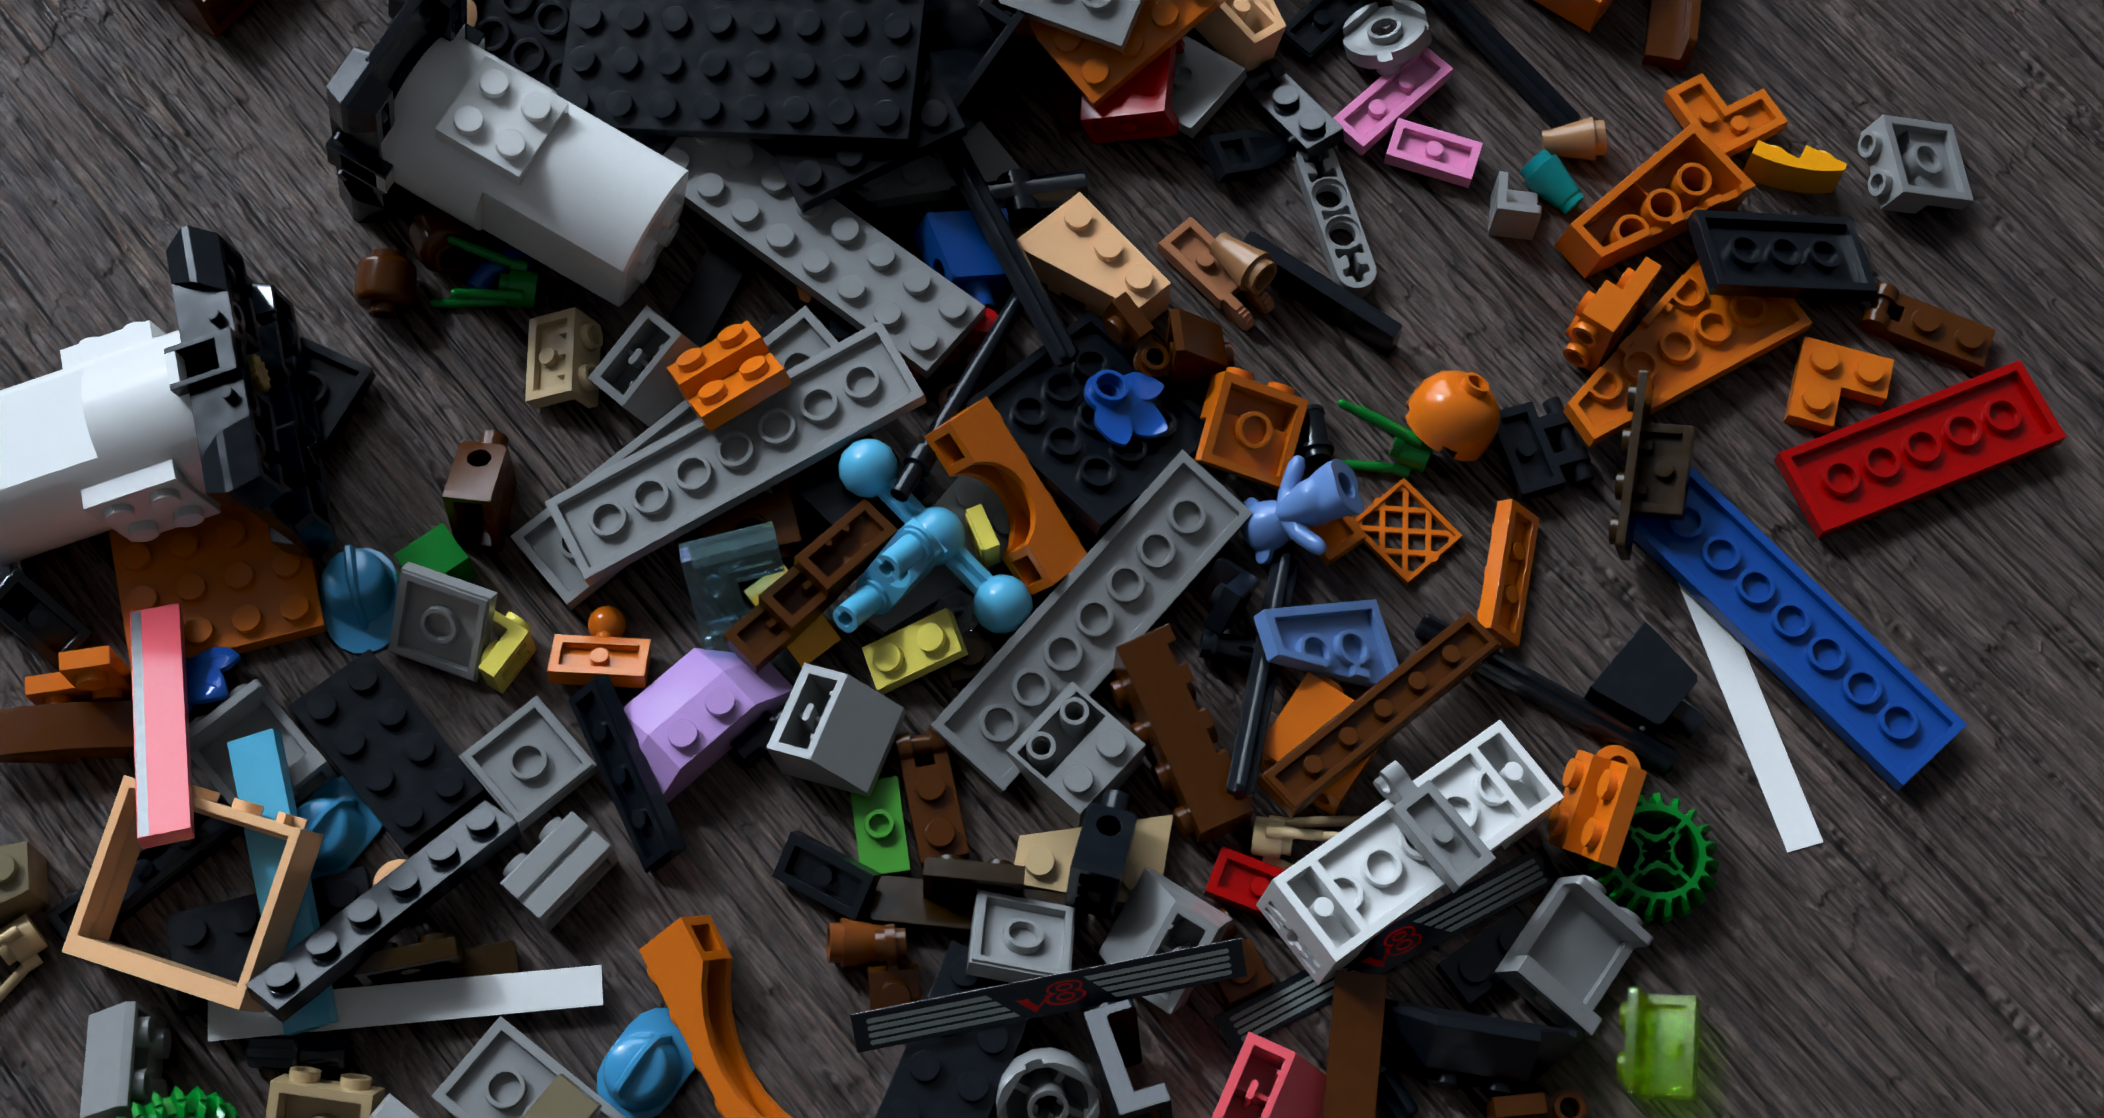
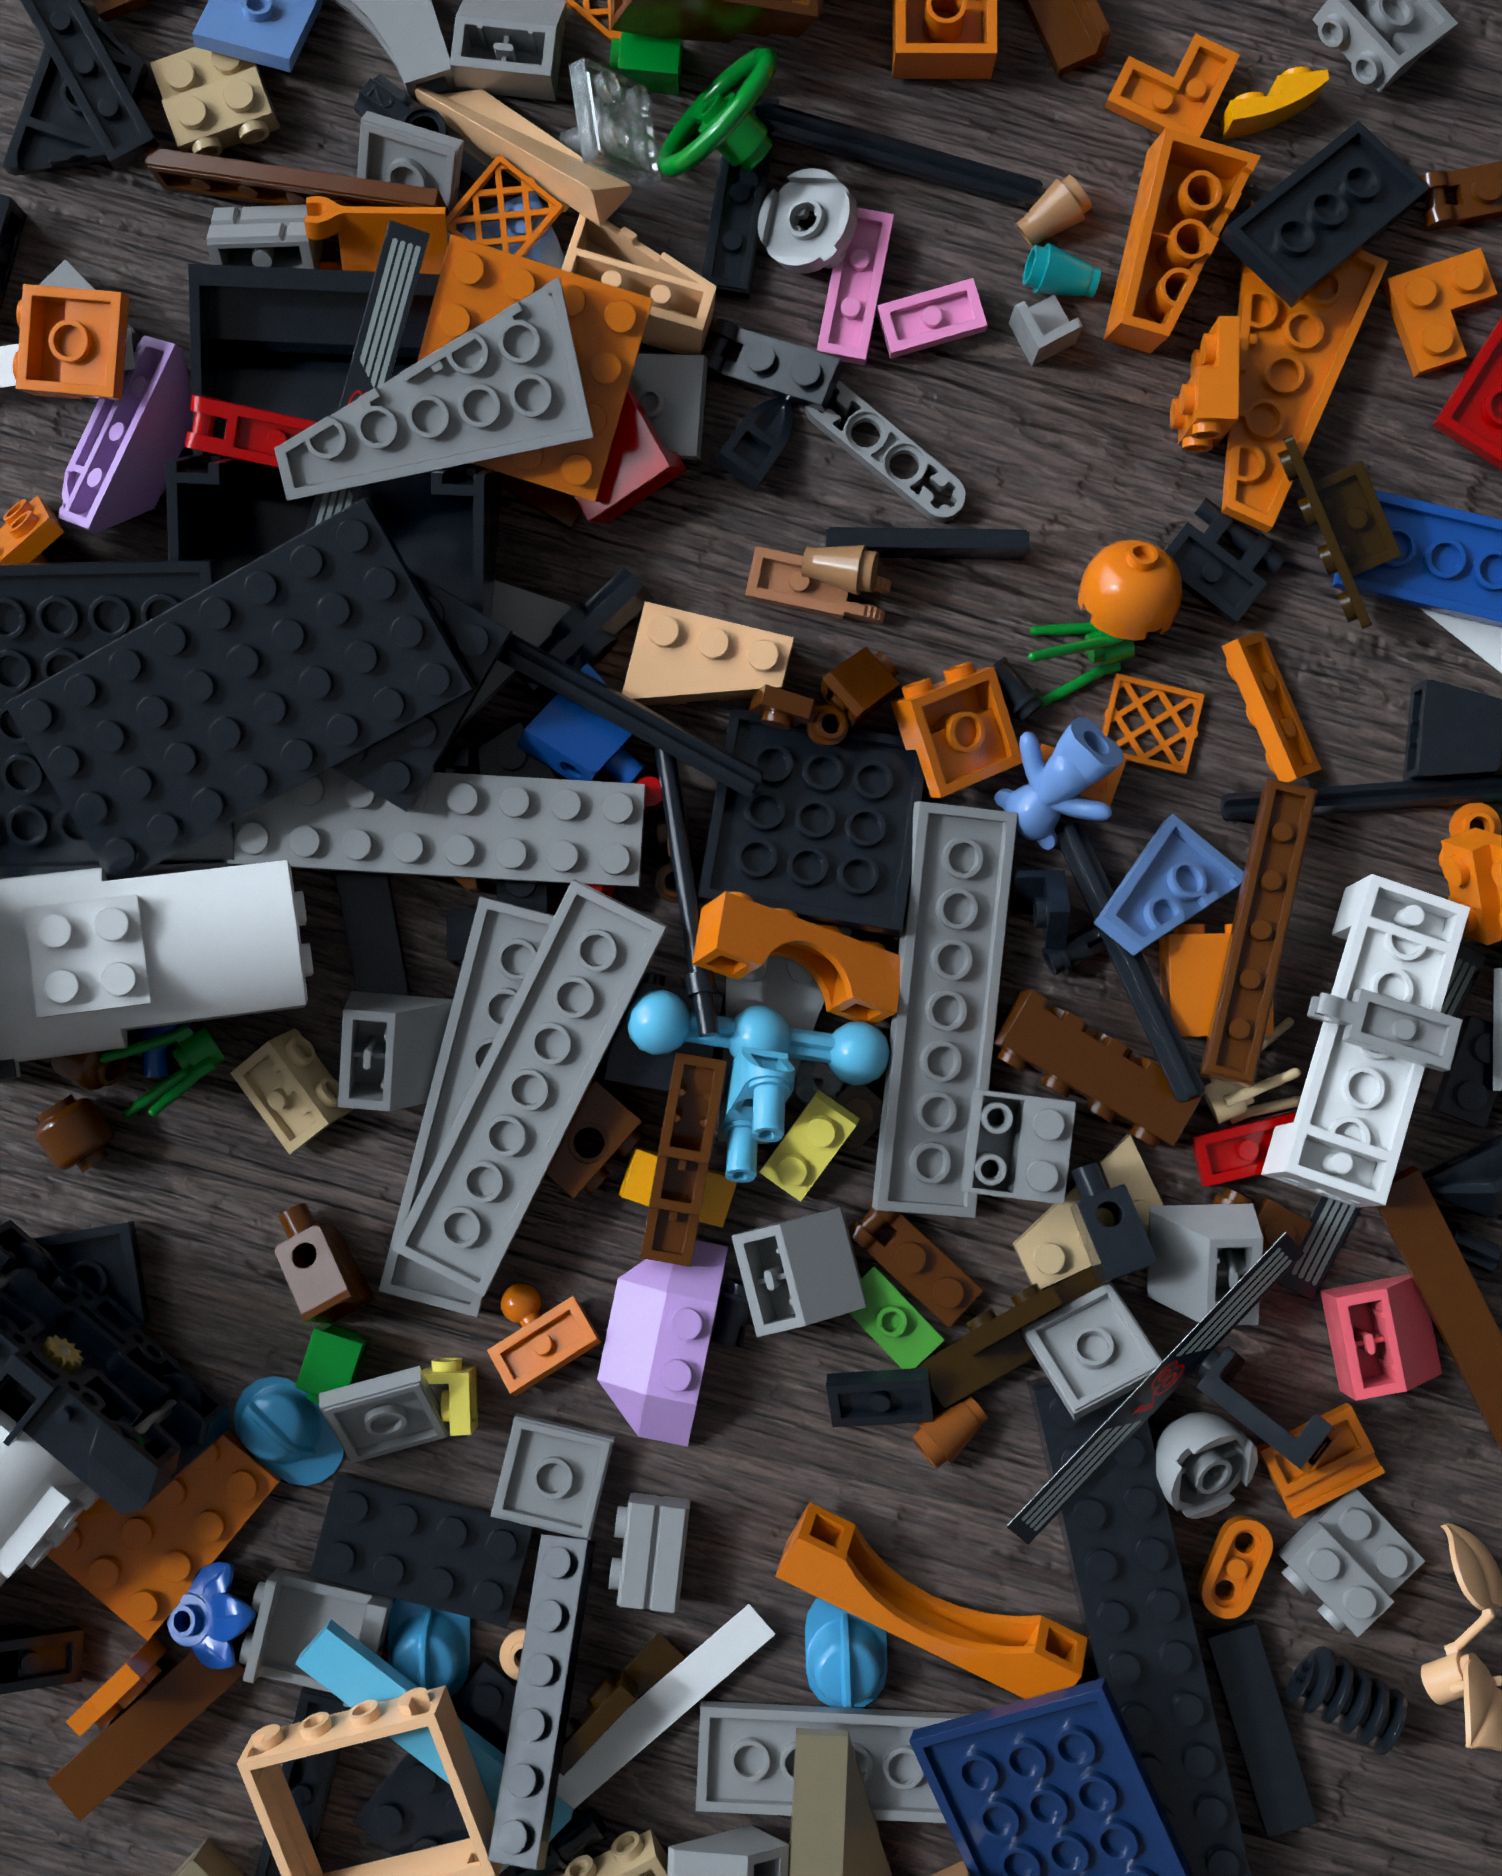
camera: 30 degrees left, 20 degrees up
(161, 727) = (230, 1696): coral tile -> none
(627, 774) = (646, 1431): black tile -> none
(716, 567) = (589, 1205): clear light blue panel -> none
(728, 375) = (471, 1026): orange plate -> none
(896, 982) = (1001, 1446): reddish brown plate -> none
(982, 536) = (796, 1004): light yellow tile -> none
(1128, 406) = (844, 790): blue plate -> none

